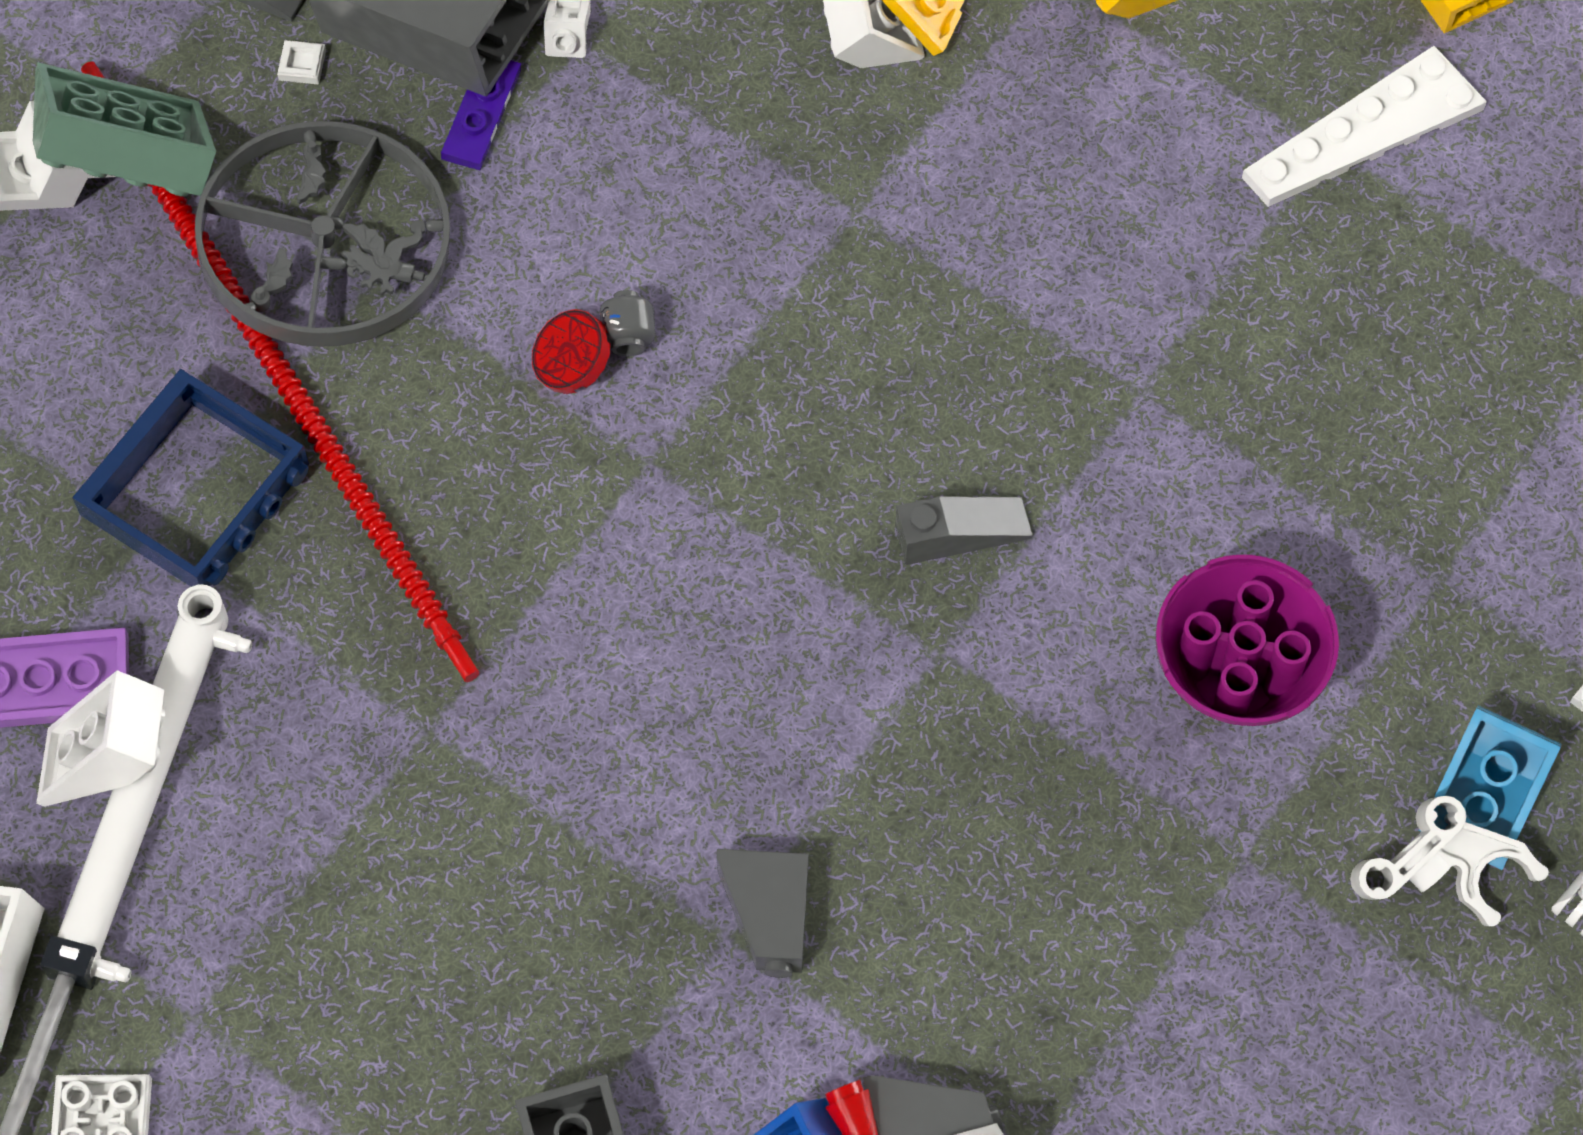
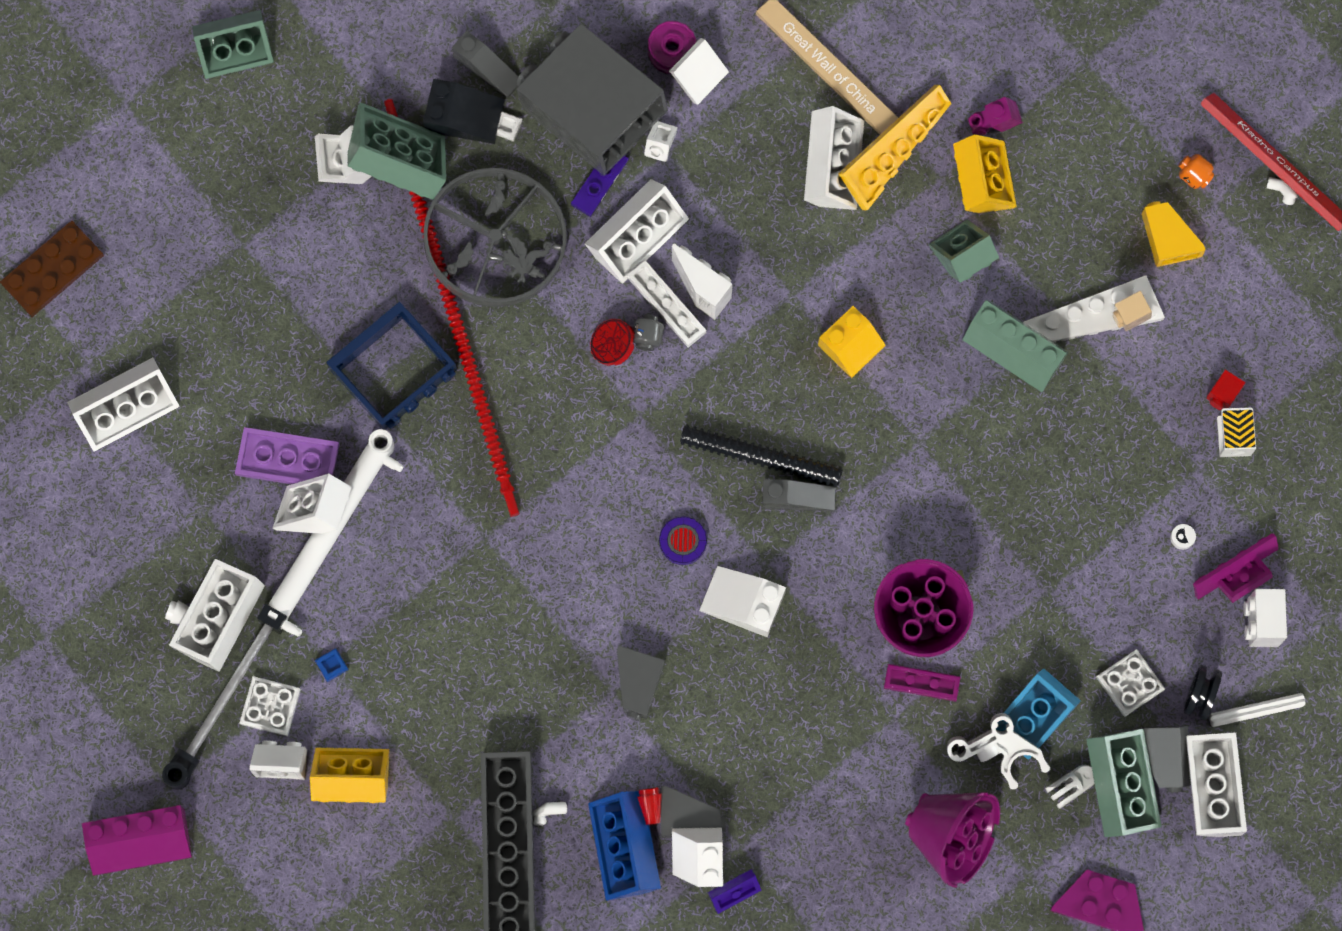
camera: 15 degrees right, 10 degrees up
(199, 1019) = (331, 665): none -> blue tile
(219, 53) = (462, 112): none -> black slope
(565, 168) = (637, 230): none -> white slope
(647, 272) = (666, 303): none -> white plate
(699, 218) = (706, 287): none -> white slope
(782, 648) = (683, 540): none -> tile
(879, 474) = (761, 455): none -> black piece
(918, 721) = (743, 600): none -> white slope
(979, 257) = (851, 342): none -> yellow slope
(1125, 75) = (964, 250): none -> sand green slope
(1256, 196) = (1014, 345): none -> sand green slope
(1273, 785) = (922, 682): none -> magenta tile
(1418, 1021) = (954, 832): none -> magenta cone
(1437, 92) = (1131, 311): none -> tan brick

